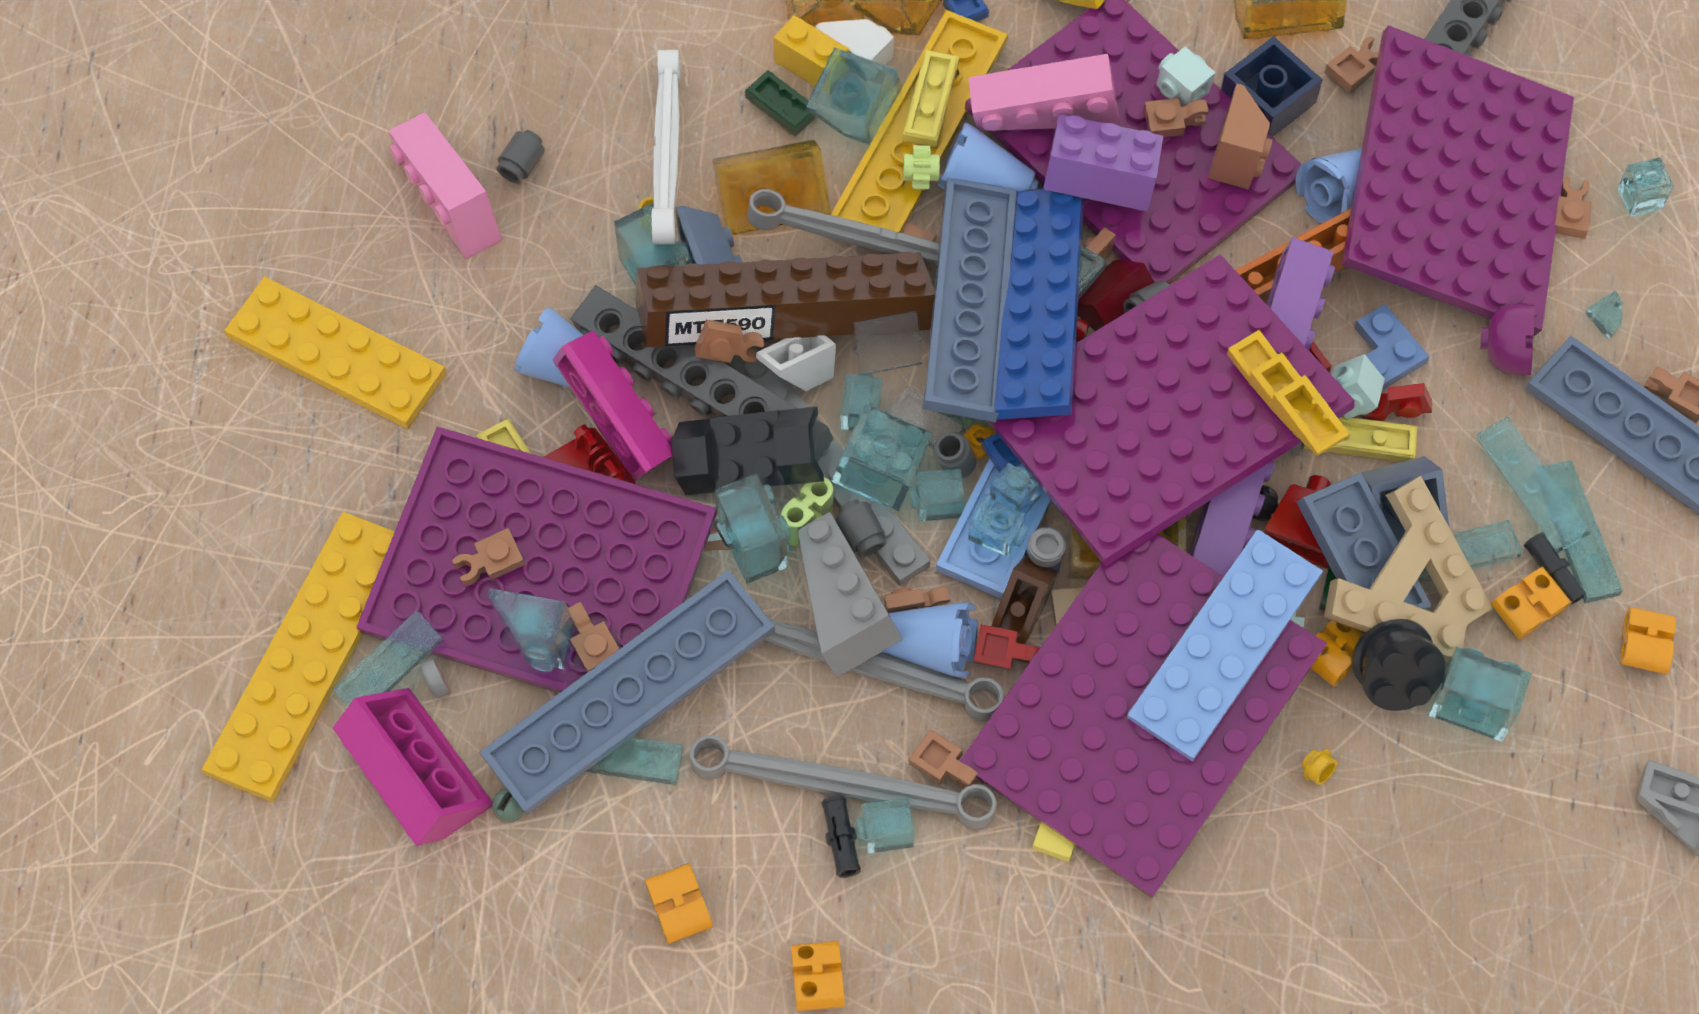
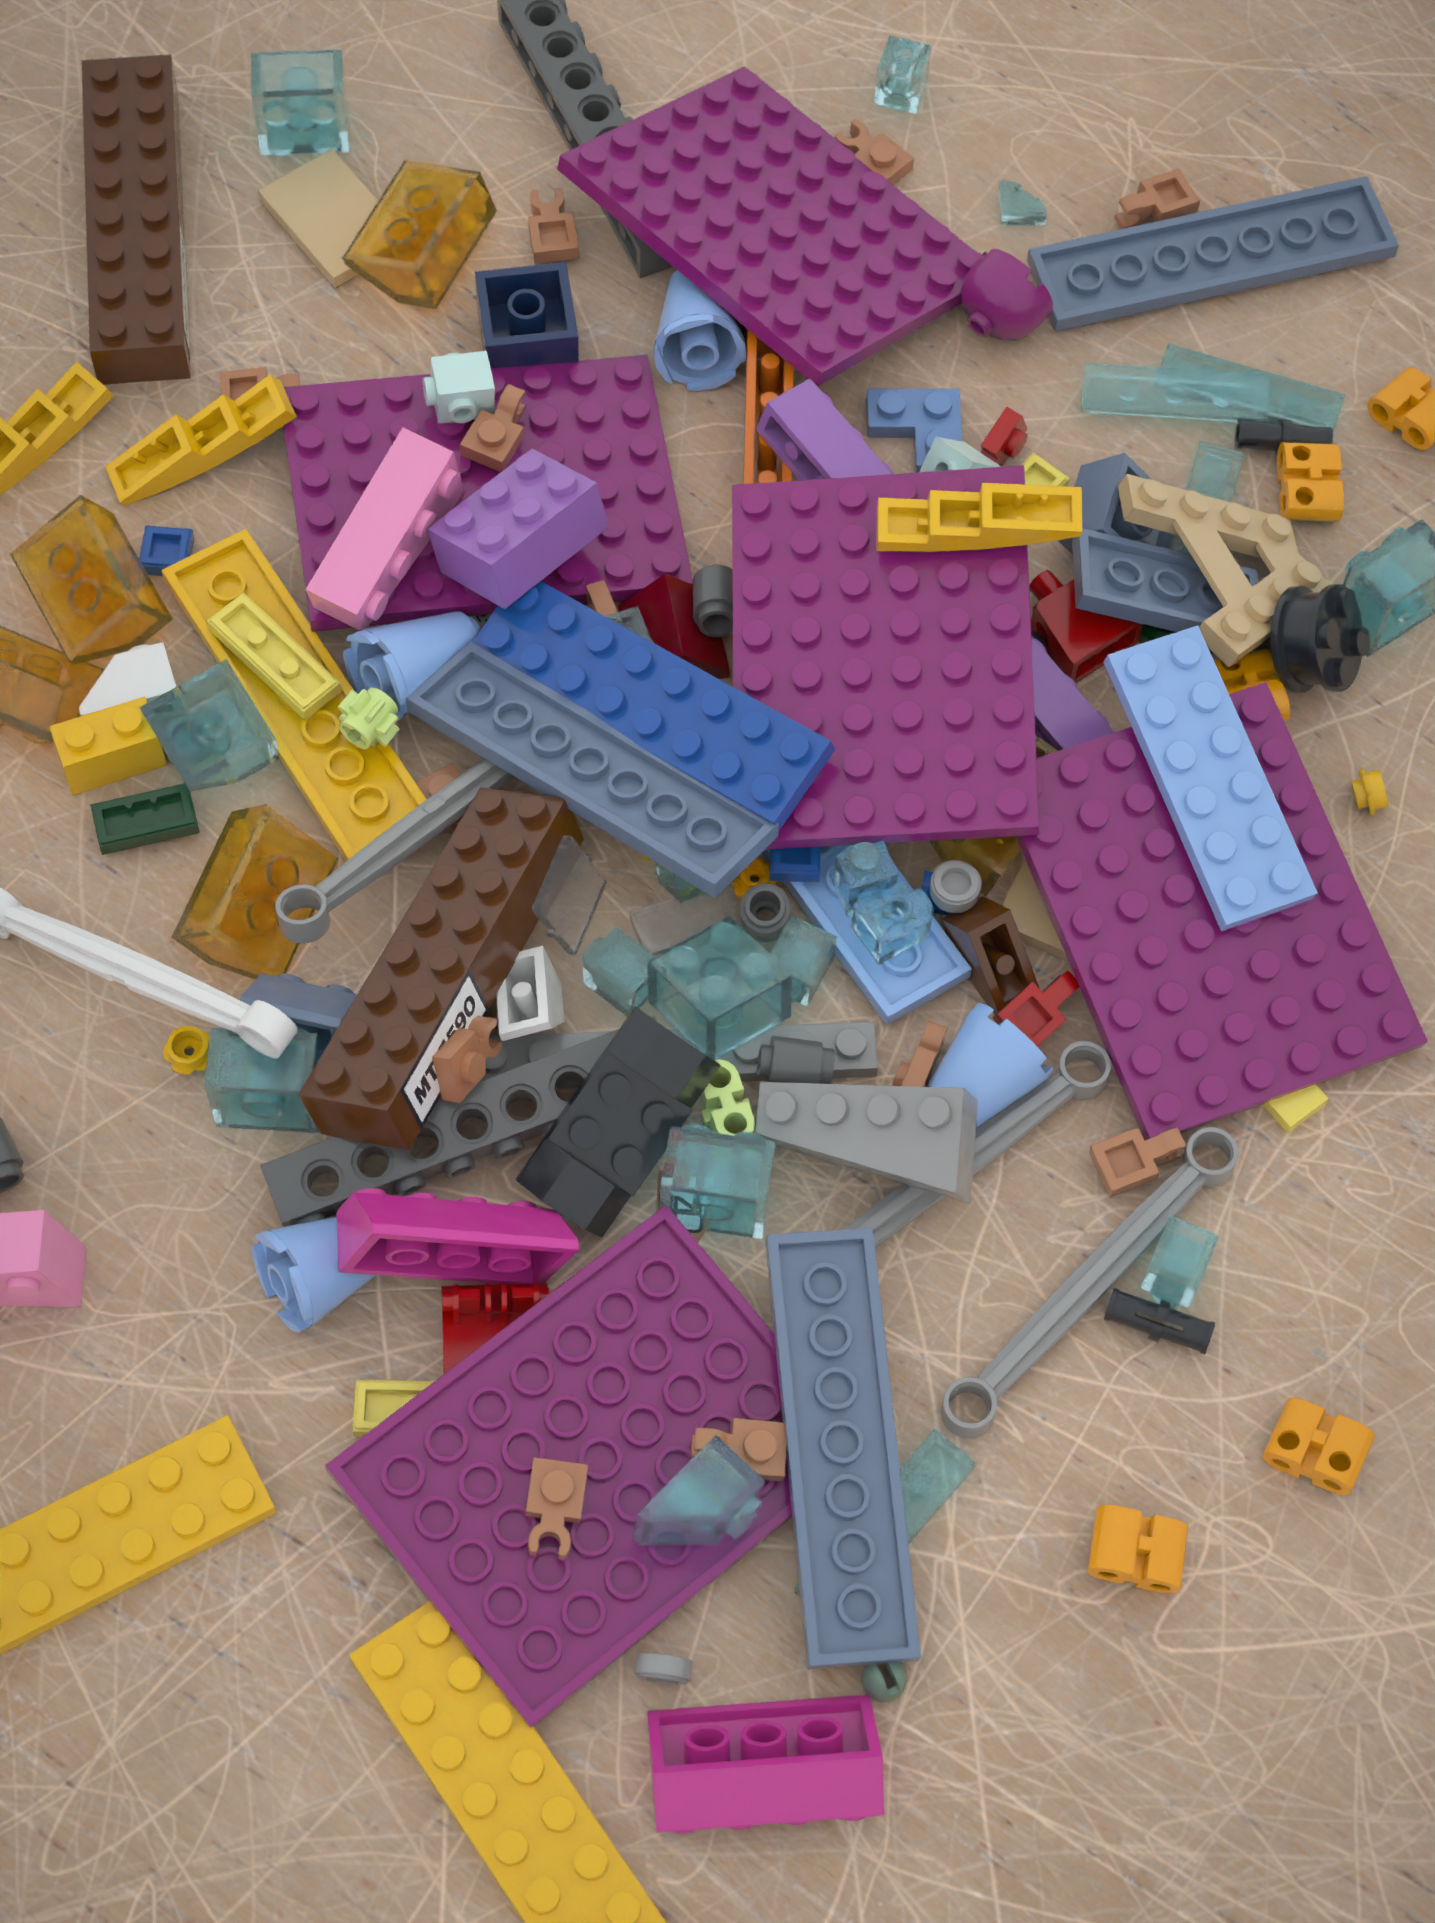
camera: 60 degrees left, 0 degrees up
(391, 659) = (609, 1715): clear light blue tile -> none
(1242, 142) = (588, 381): nougat slope -> none

